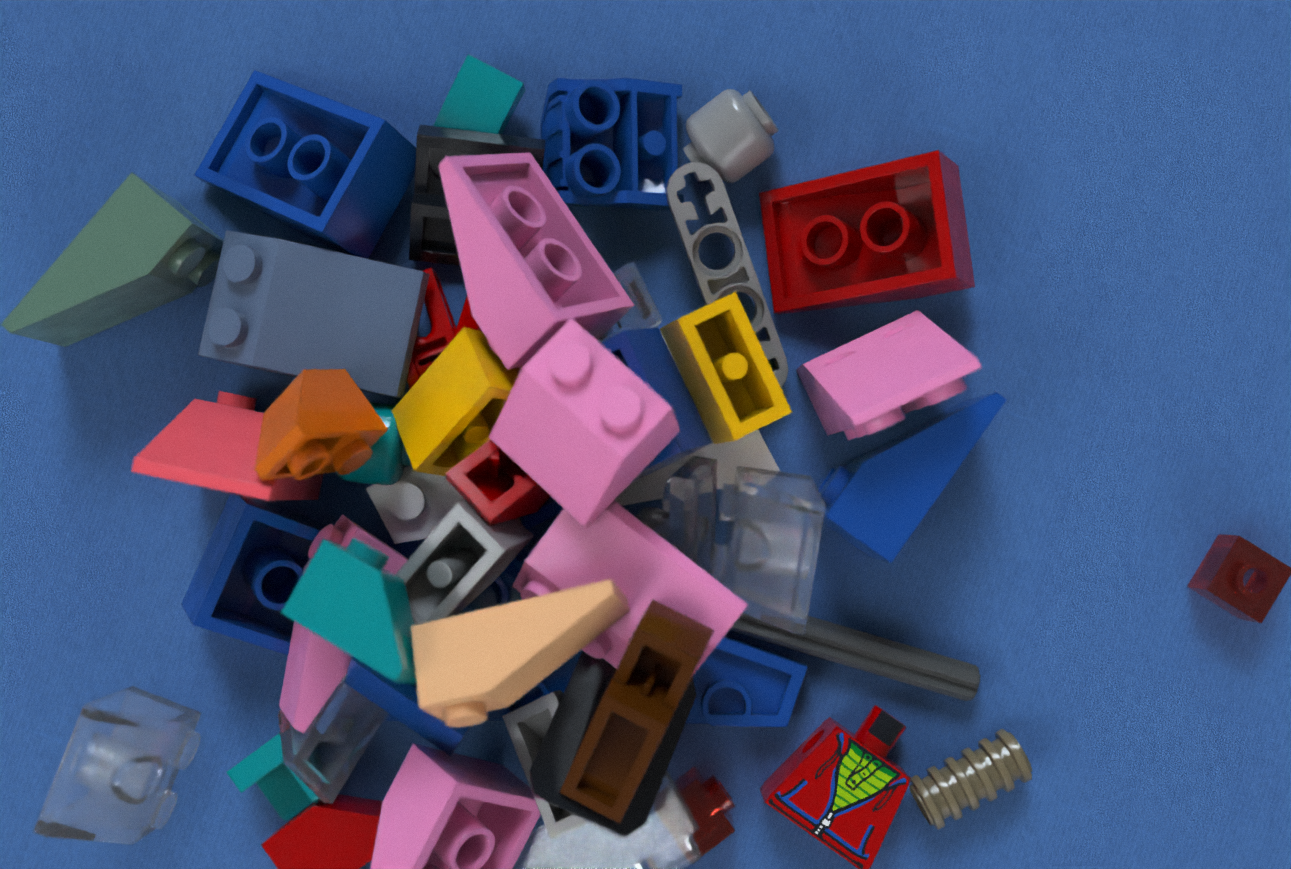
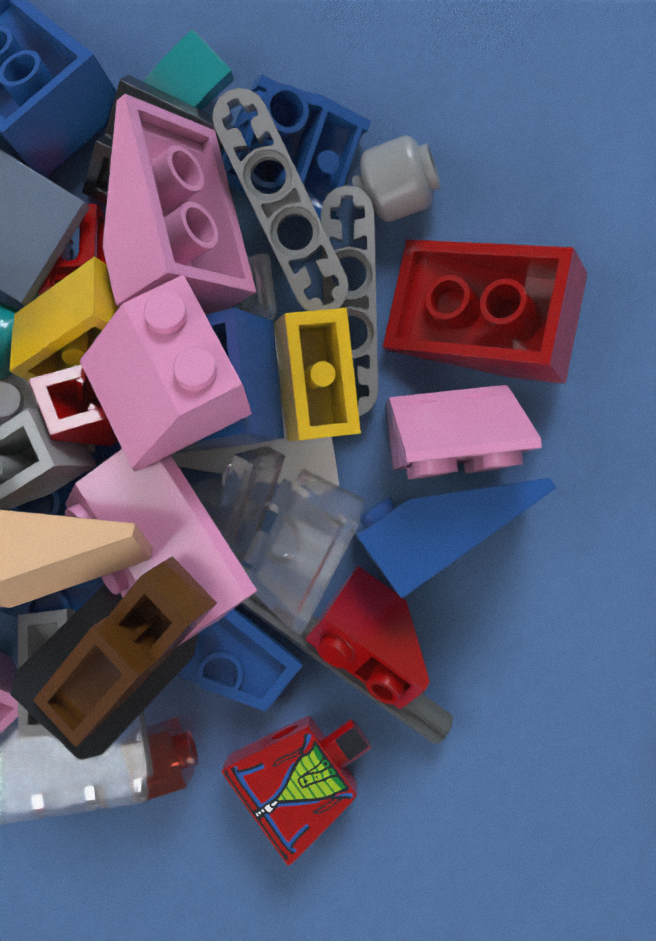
camera: 20 degrees right, 0 degrees up
(635, 200) = (287, 202): none -> light grey beam
(871, 614) = (372, 638): none -> red slope
(970, 778) = (412, 813): dark tan piece -> none

